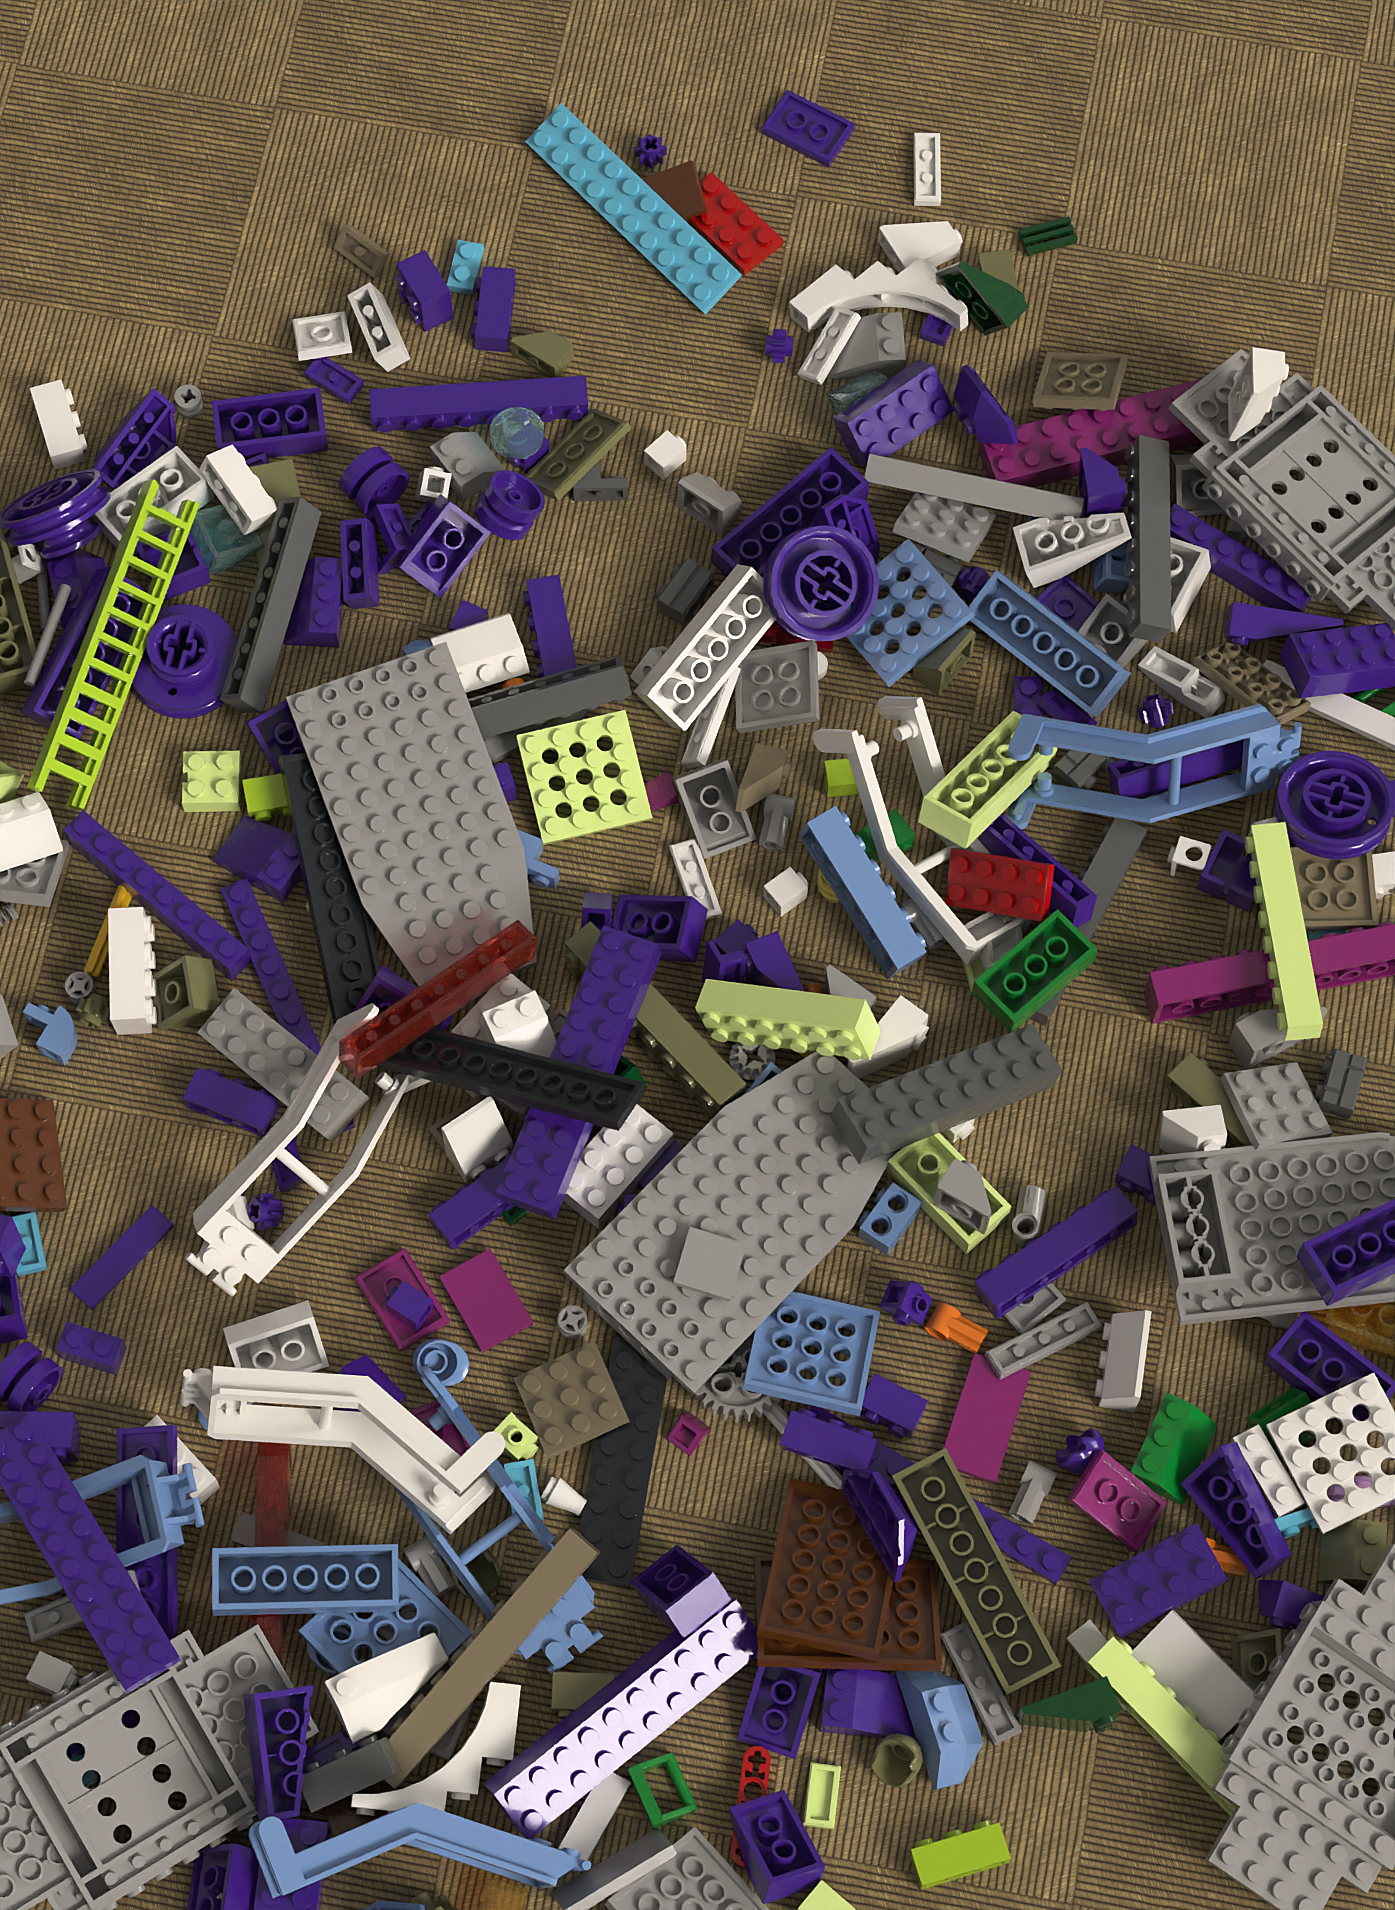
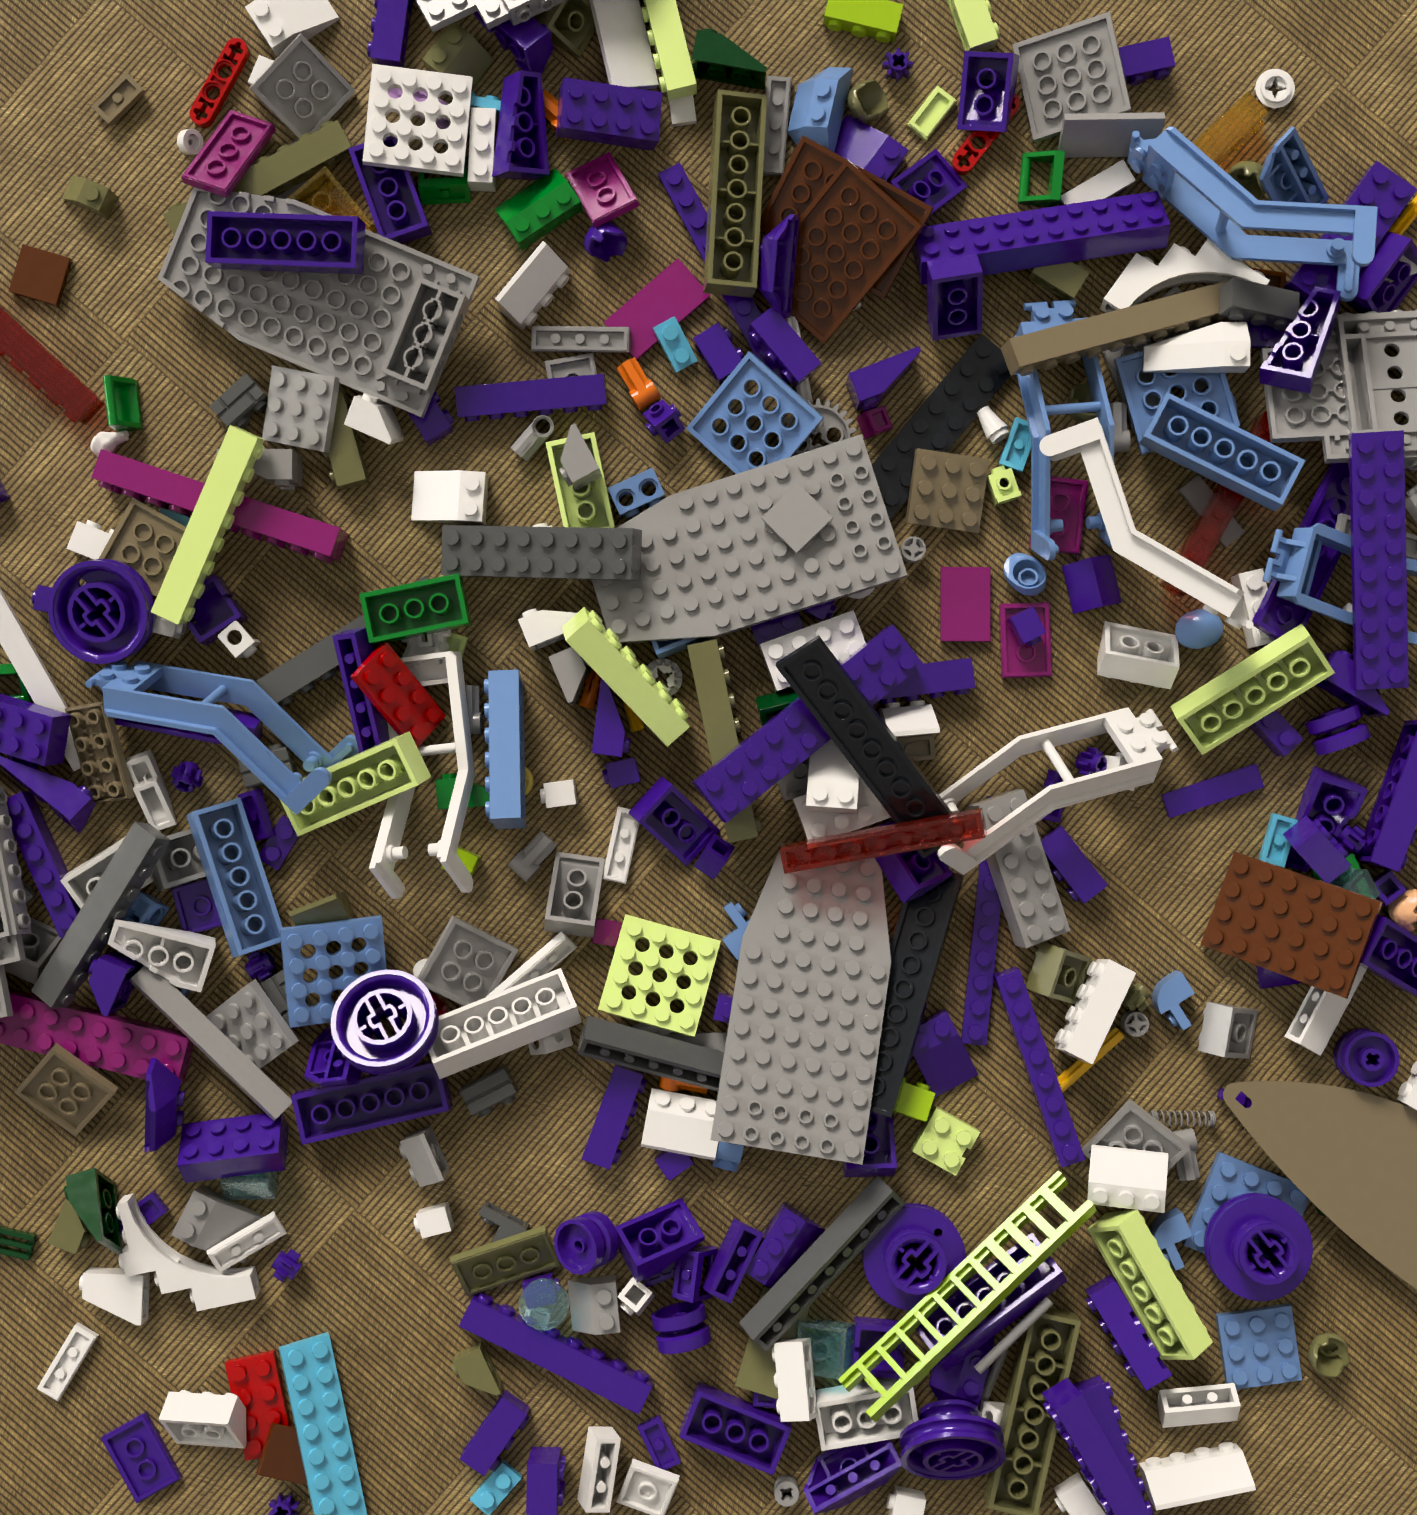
camera: 145 degrees left, 20 degrees up
(139, 1362) = (1252, 689): none -> yellowish green brick
(714, 1459) = (874, 381): none -> dark purple slope
(724, 967) = (648, 746): dark purple panel -> none
(763, 775) = (522, 895): dark tan slope -> none
(770, 184) = (205, 1419): none -> white slope
(884, 1813) = (896, 58): none -> dark purple gear
(943, 1390) = (674, 344): none -> medium azure plate
(1034, 1487) = (652, 238): light grey piece -> none
(1073, 1111) = (450, 497): none -> white slope

